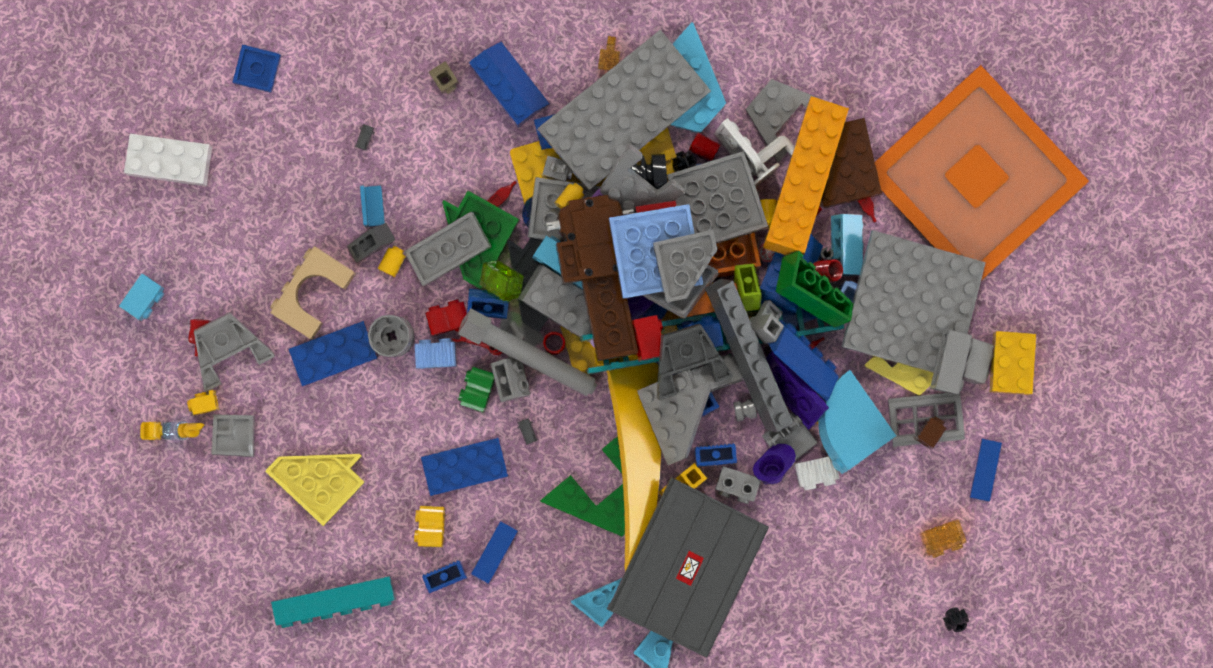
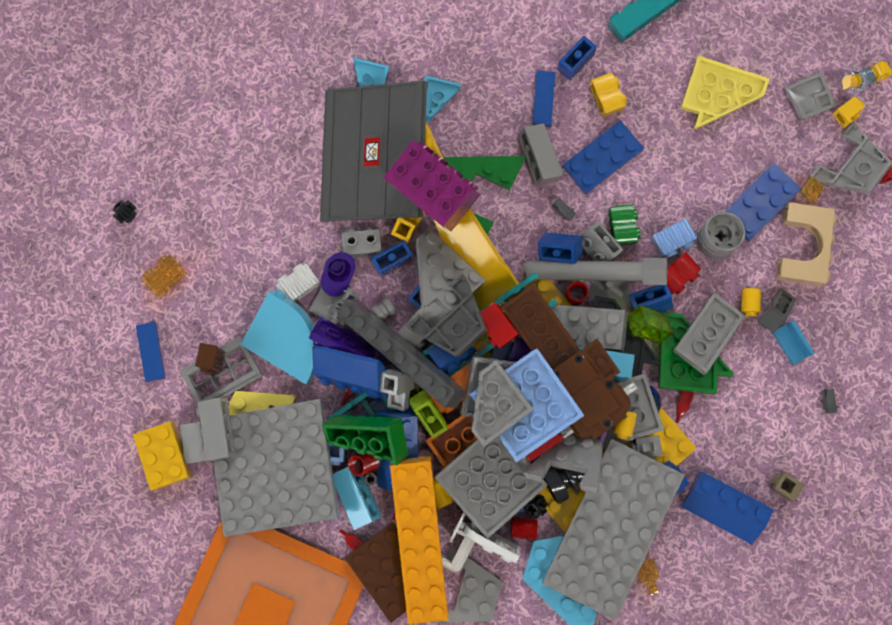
camera: 155 degrees right, 5 degrees down
(279, 343) = (812, 189): none -> clear yellow plate
(525, 494) = (540, 154): none -> light grey brick
(550, 392) = (560, 247): none -> blue brick
(650, 496) = (432, 185): none -> magenta brick

